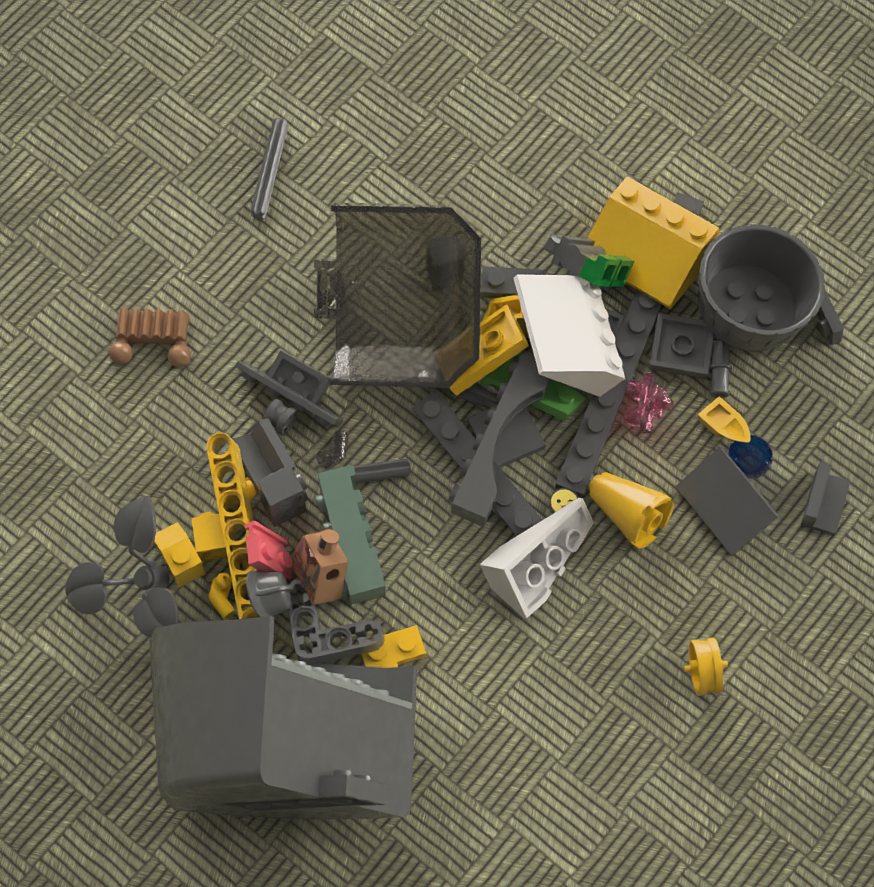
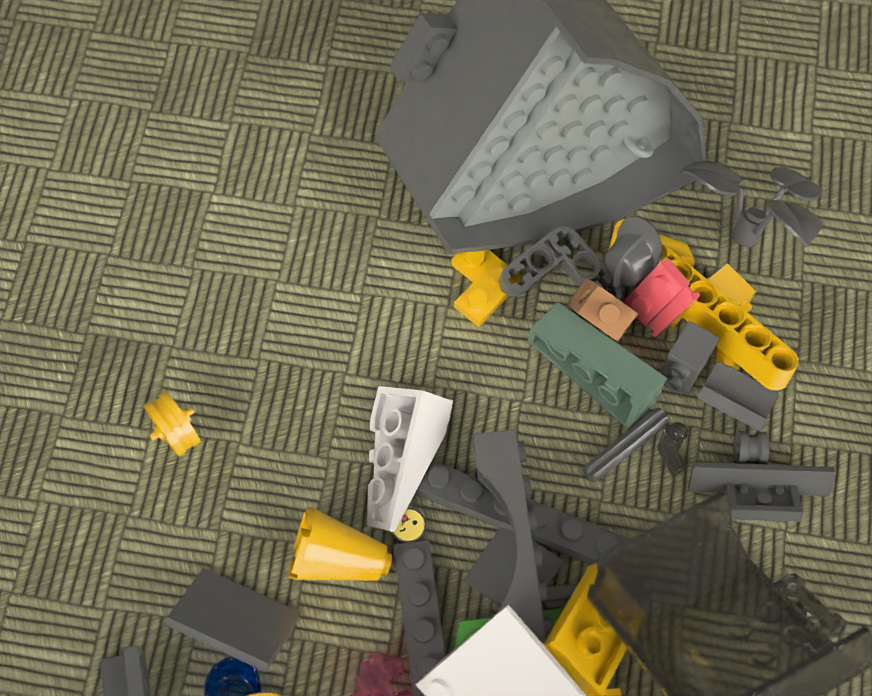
camera: 150 degrees right, 0 degrees up
(179, 554) = (748, 260): yellow slope -> none

